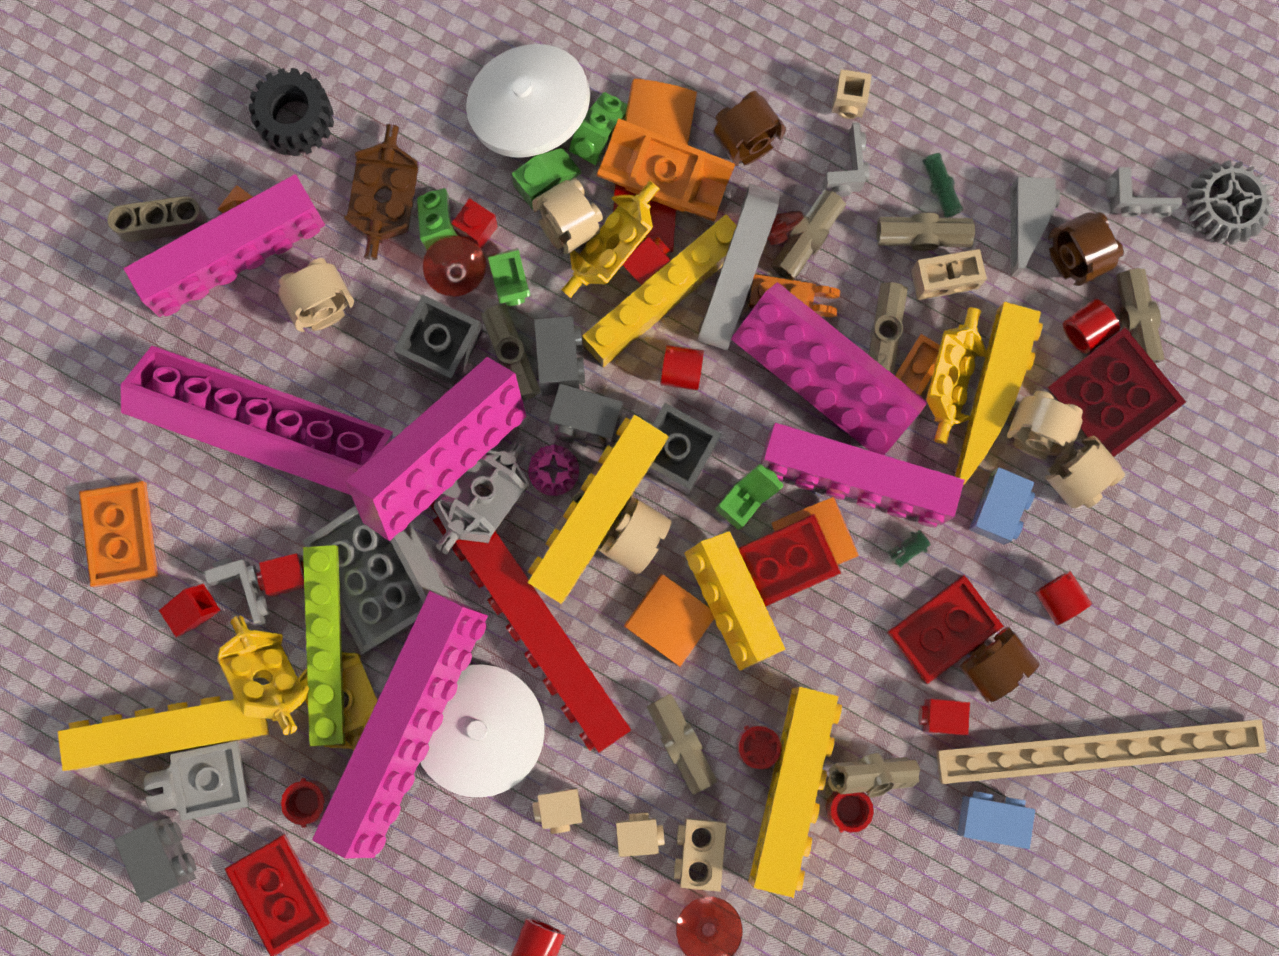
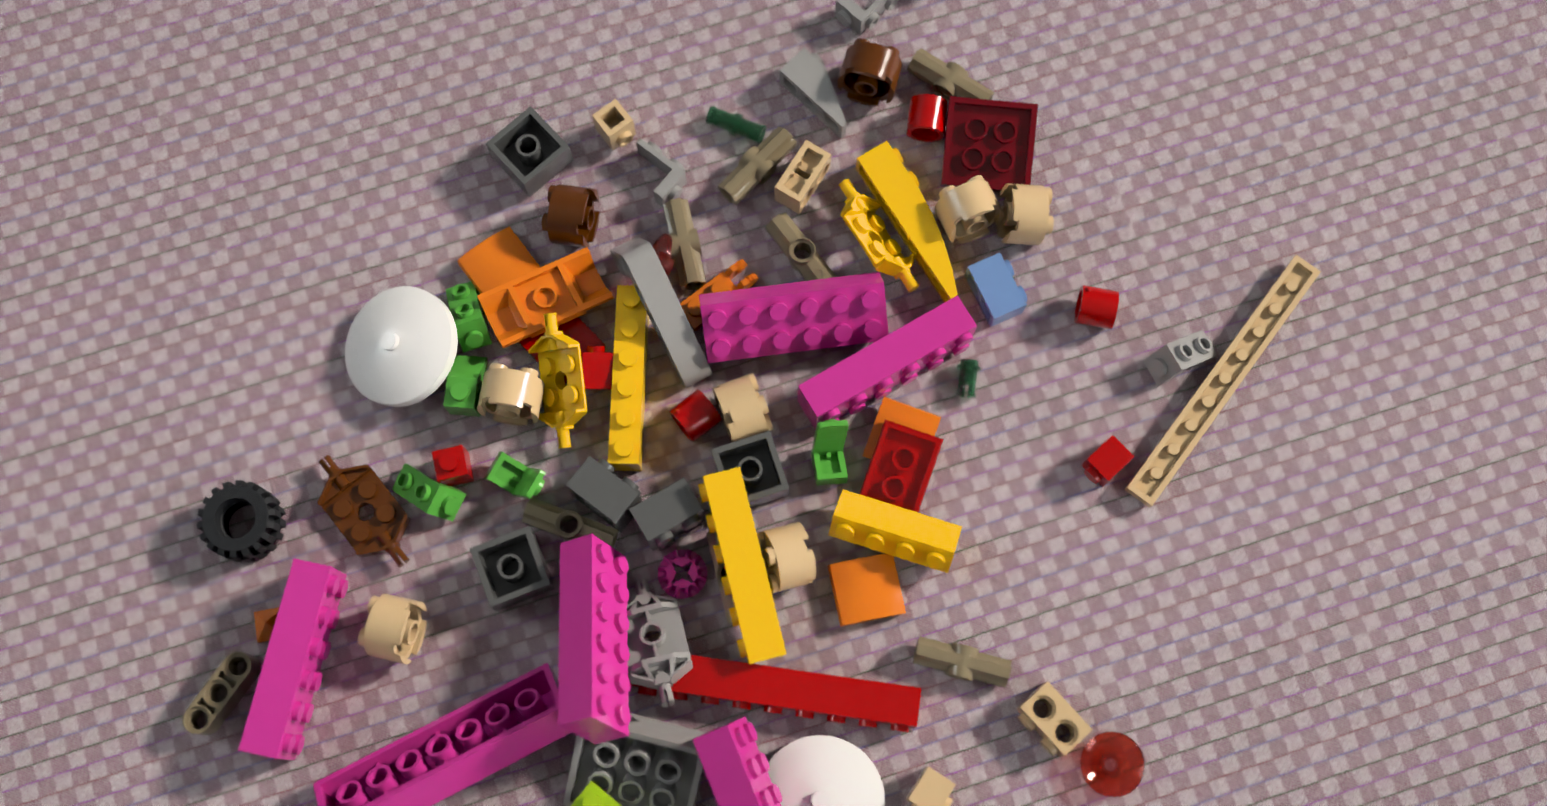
camera: 40 degrees left, 5 degrees down
(450, 253) = (456, 507): clear red dish -> none
(639, 835) = (1000, 753): tan brick -> none
(720, 397) = (742, 408): none -> tan brick
(758, 747) = (1013, 609): red piece -> none
(769, 51) = (530, 151): none -> dark grey brick
(793, 792) = (1068, 613): yellow brick -> none
(849, 811) = (1113, 586): red piece -> none
(873, 775) = (1105, 546): dark tan piece -> none
(919, 364) = (845, 252): orange hinge -> none
(945, 629) = (1045, 406): red tile -> none
(995, 821) = (1210, 493): medium blue brick -> none
(1000, 666) = (1105, 391): reddish brown brick -> none
(1086, 699) = (1179, 356): none -> light grey bracket

